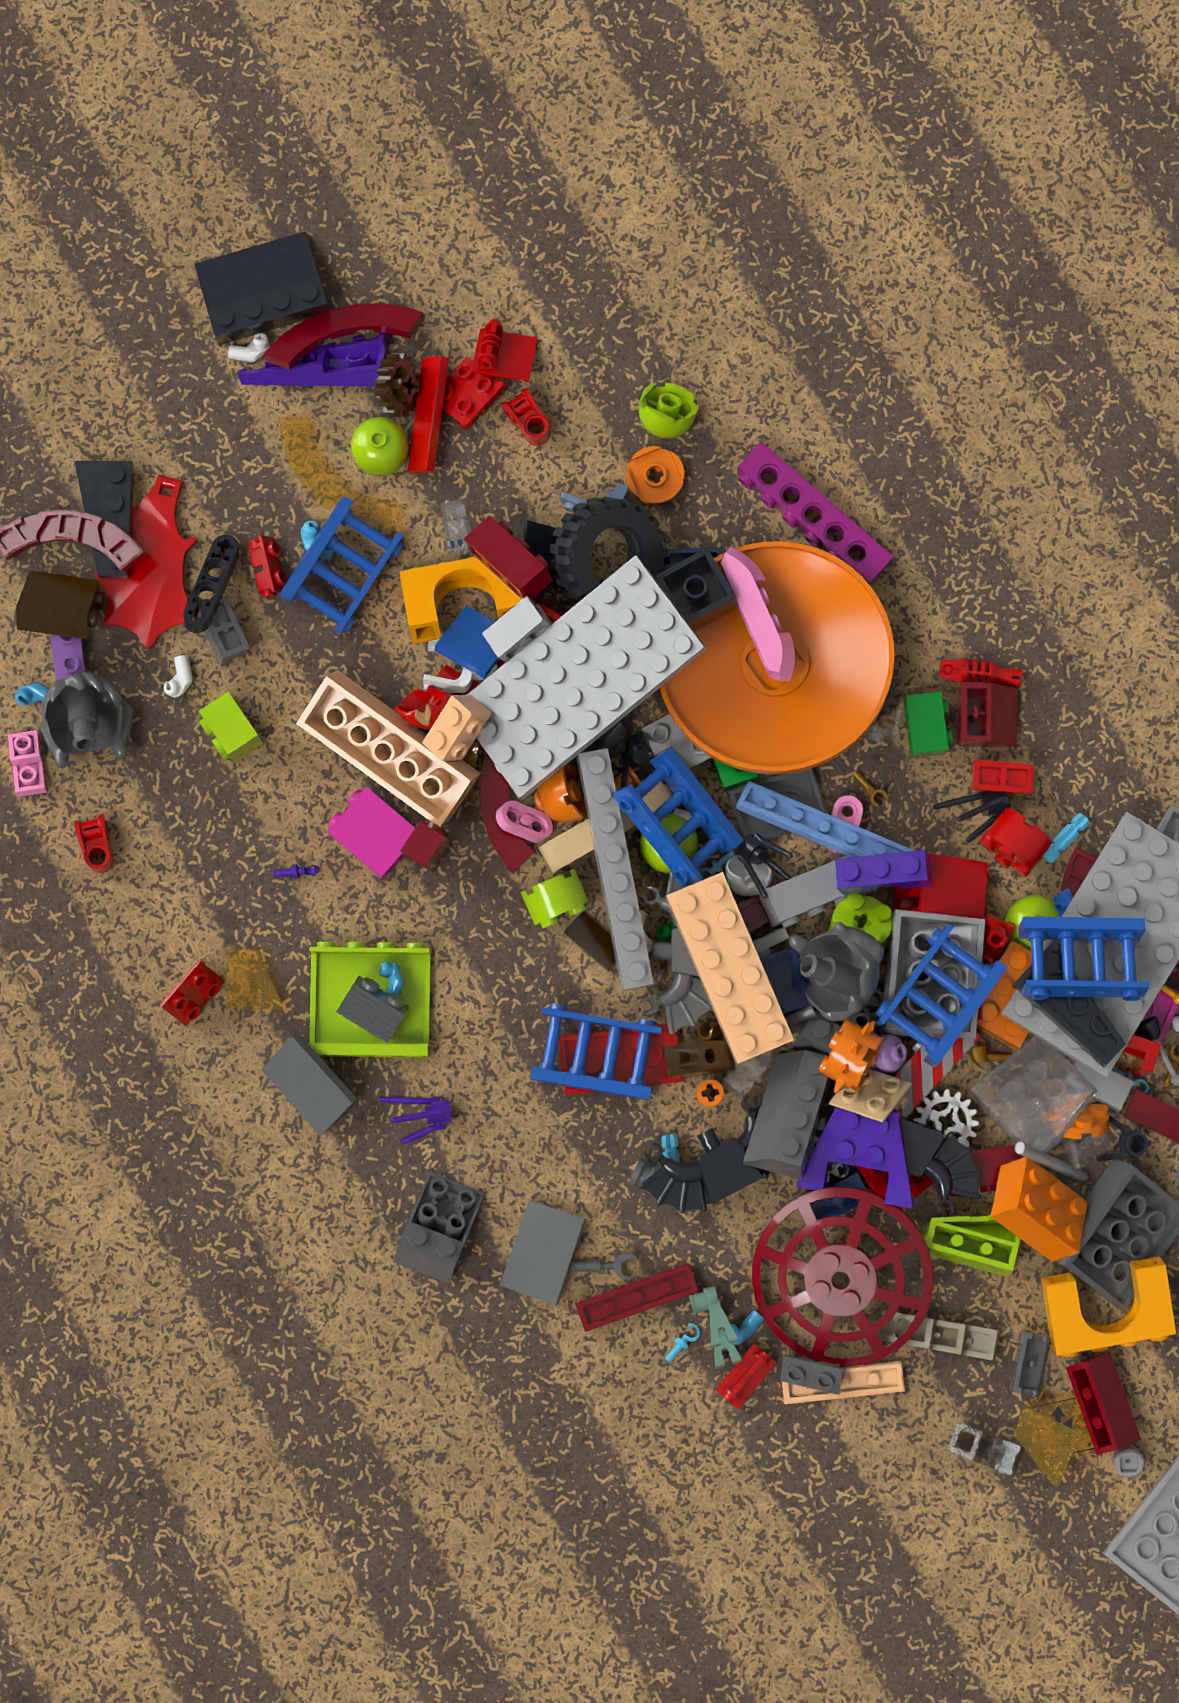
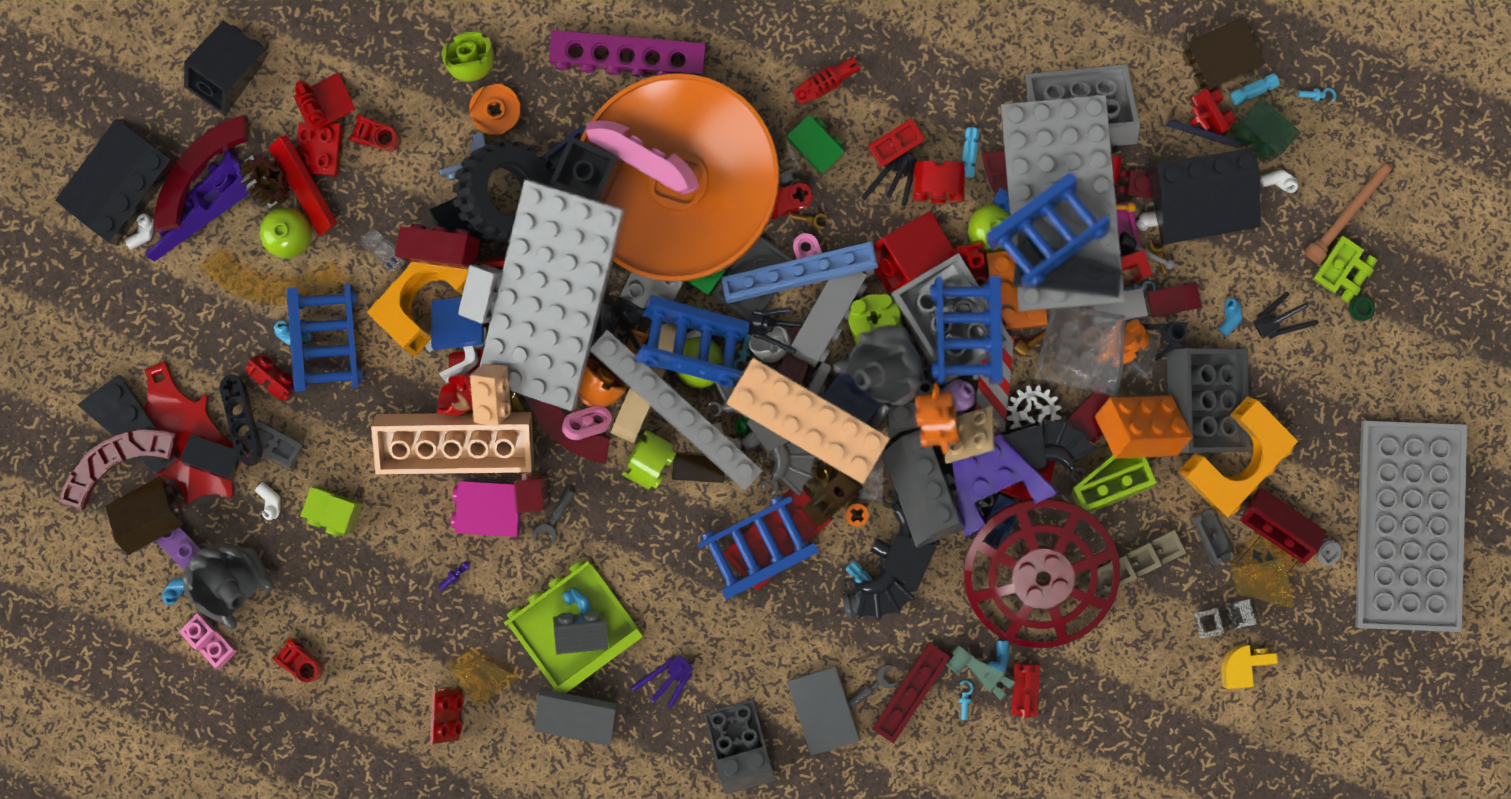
camera: 30 degrees left, 5 degrees up
(157, 598) = (210, 458): none -> black hinge
(433, 886) = (557, 514): none -> dark grey piece
(437, 256) = (223, 67): none -> black slope
(812, 1374) = (1063, 658): dark grey hinge -> none
(858, 1381) = (1094, 644): light nougat tile -> none
(859, 757) = (786, 203): none -> red piece
(893, 869) = (863, 272): dark purple arch -> none
(966, 1501) = (1238, 665): none -> yellow brick
(986, 715) = (852, 107): dark red slope -> none
(1051, 1162) = (1127, 388): light grey bar -> none

